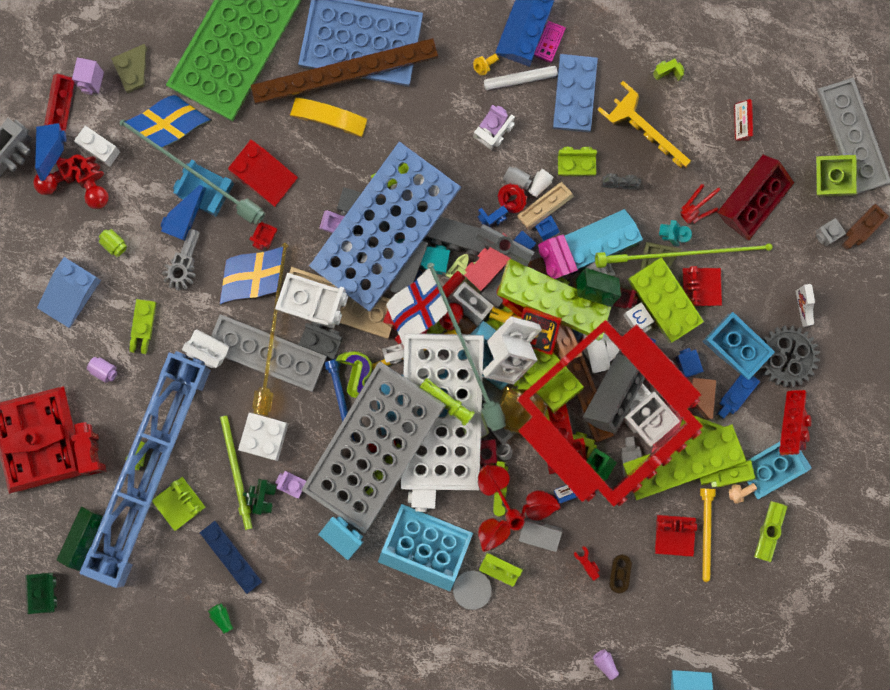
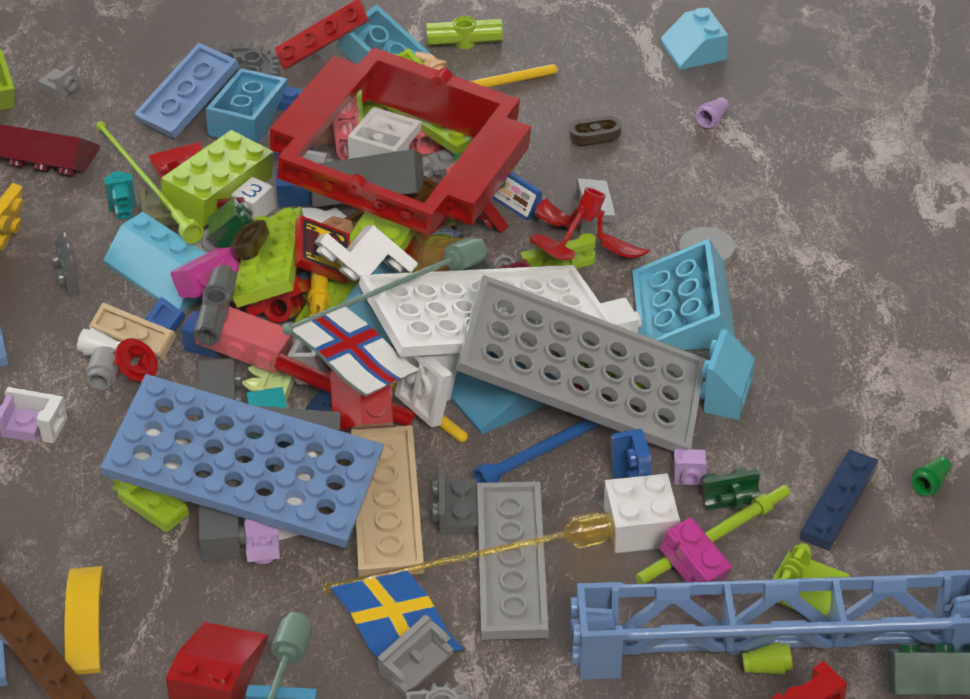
camera: 110 degrees left, 40 degrees down
(206, 349) = (548, 611): white bracket -> none
(214, 448) = (694, 554): none -> dark pink brick
(219, 273) = (415, 655): none -> light grey hinge
(263, 236) = (328, 623): red bracket -> none
(293, 449) = (630, 454): none -> blue bracket
(312, 300) = (400, 502): white bracket -> none
(360, 371) = (485, 438): lime animal -> none
(454, 407) = (465, 304): lime pin -> none
(497, 217) = (170, 369): blue bracket -> none
(500, 569) = (661, 224): lime bracket -> none
(563, 287) = (249, 240): none -> dark brown plate
(577, 162) = (52, 321): lime bracket -> none
(590, 568) = (605, 156): red plate -> none
(675, 535) = (531, 102): red hinge -> none
(690, 213) = (82, 195): red plant -> none
(772, 311) = (186, 90): none -> medium blue plate
(806, 303) = (157, 64): white tile -> none
(865, 226) = (39, 56): reddish brown hinge -> none

